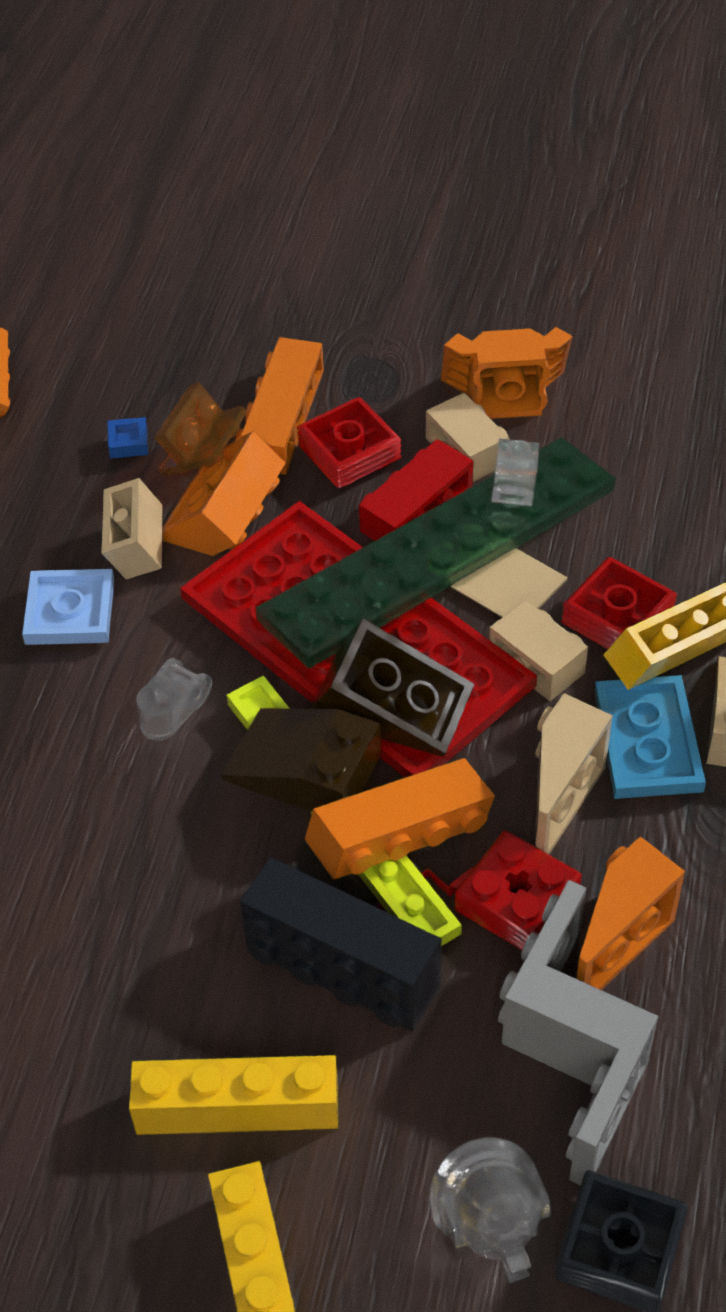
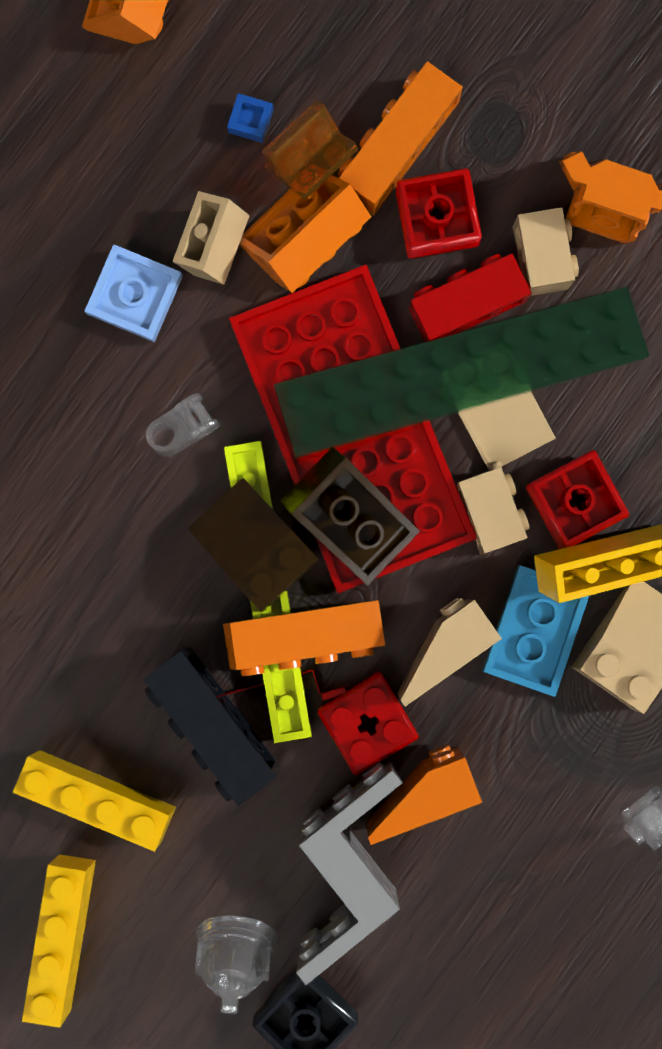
camera: 30 degrees right, 35 degrees up
(515, 472) = (557, 333): clear brick -> none

